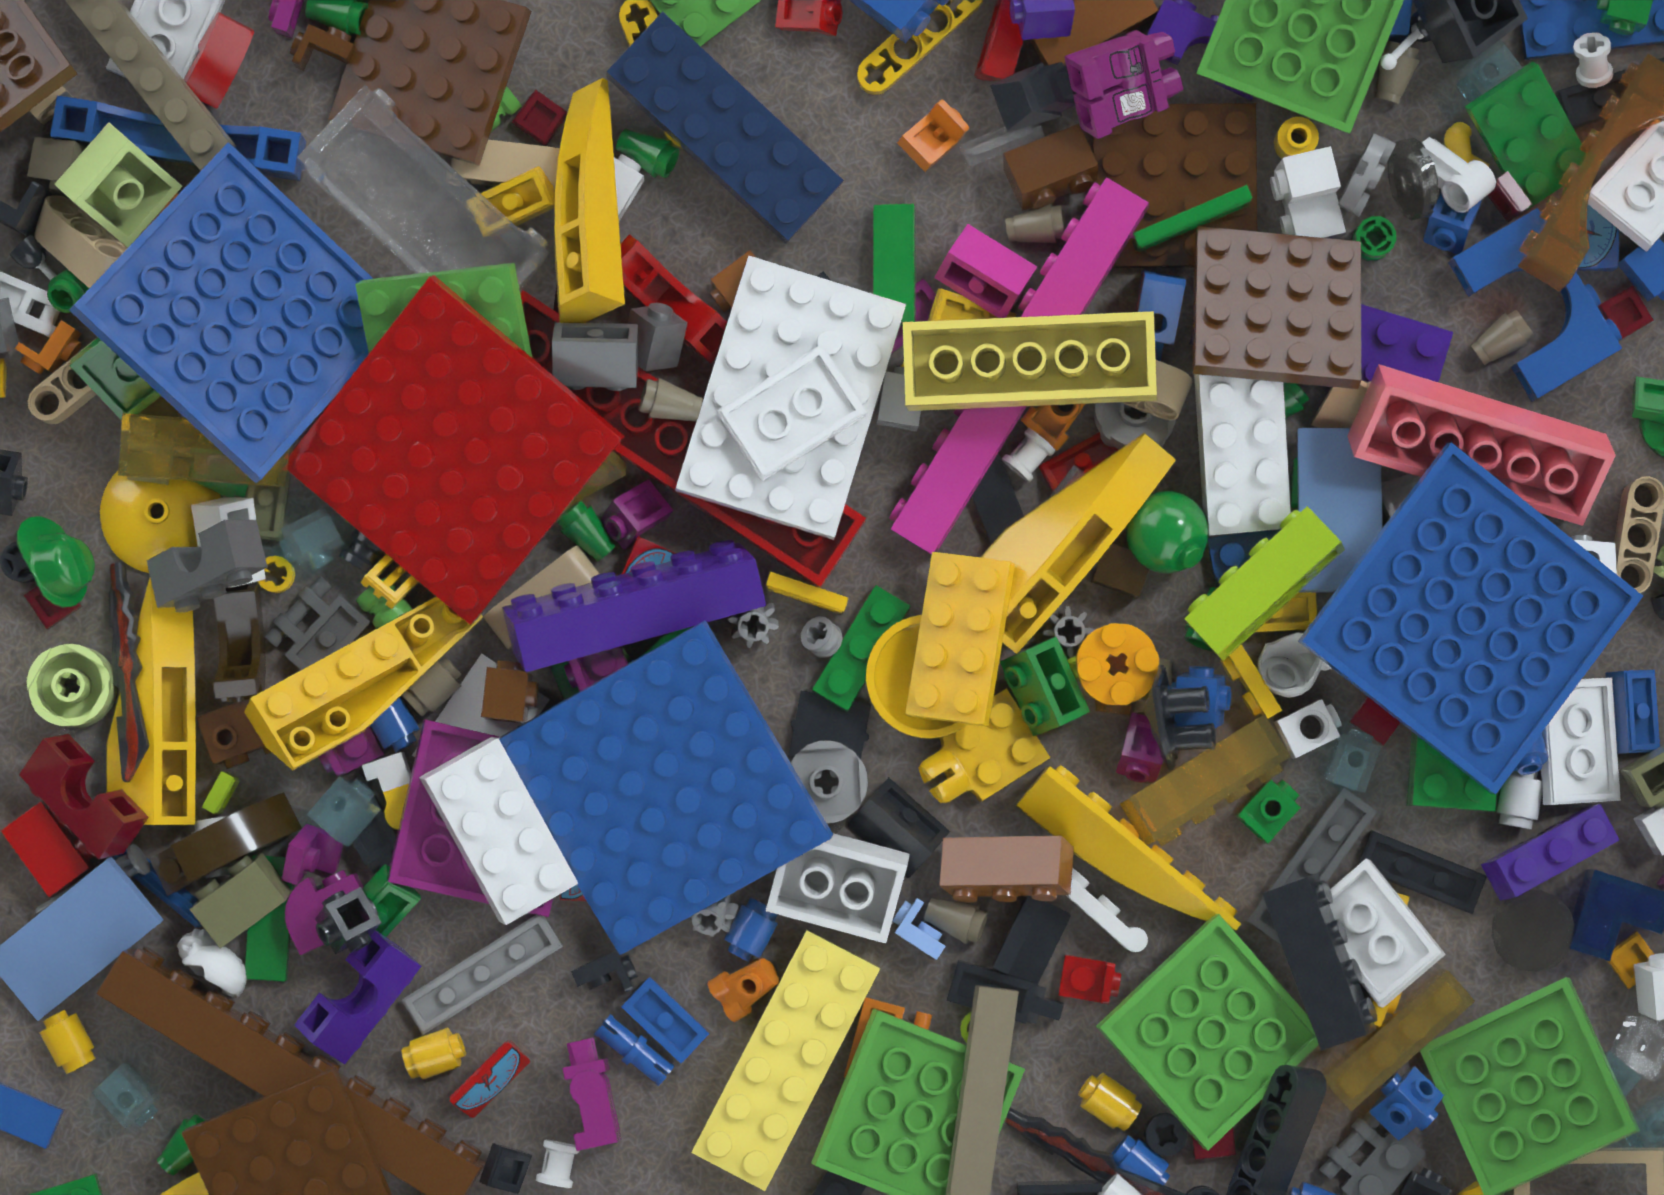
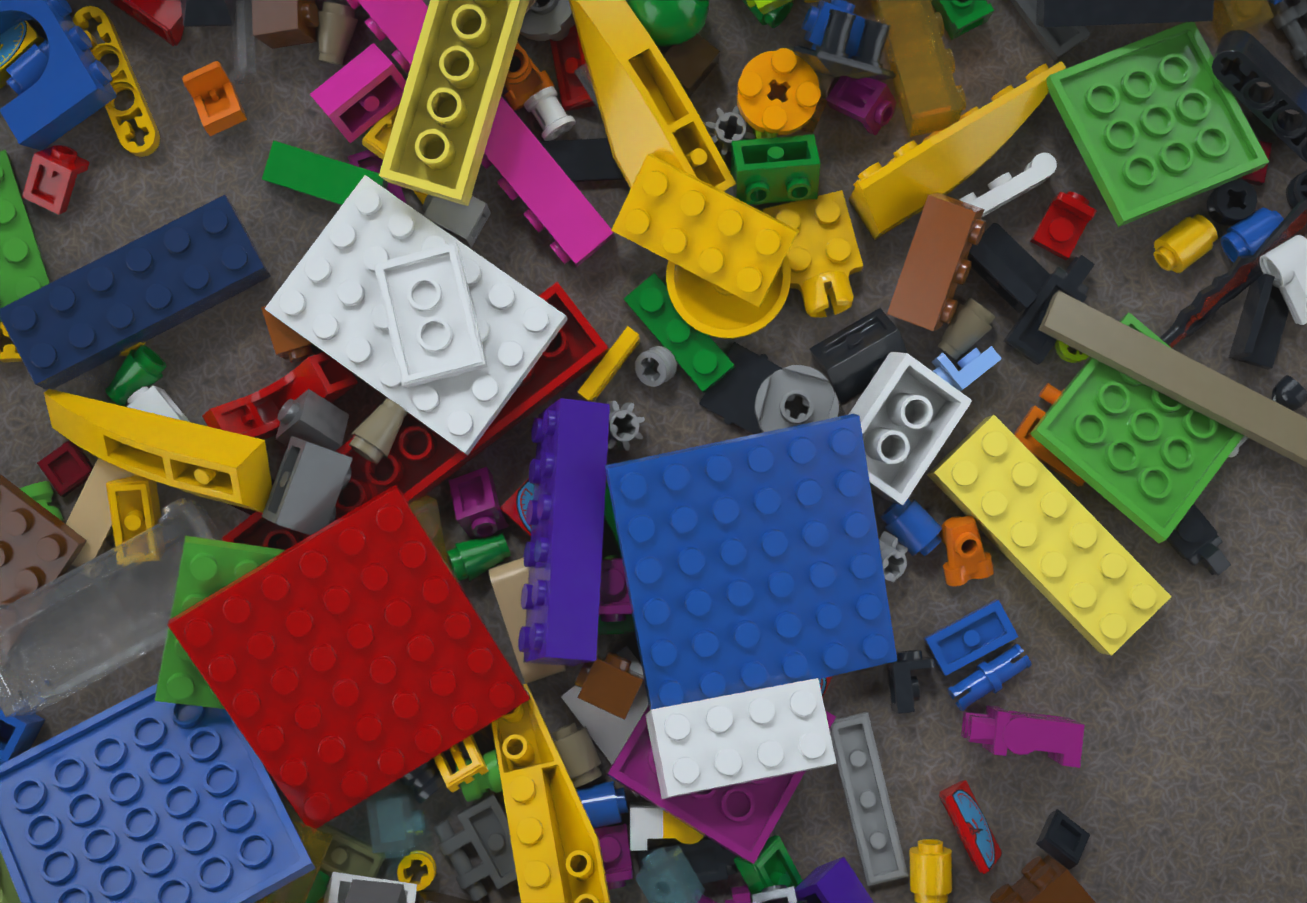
camera: 70 degrees left, 0 degrees up
(557, 1164) = (1075, 788): white bush -> none

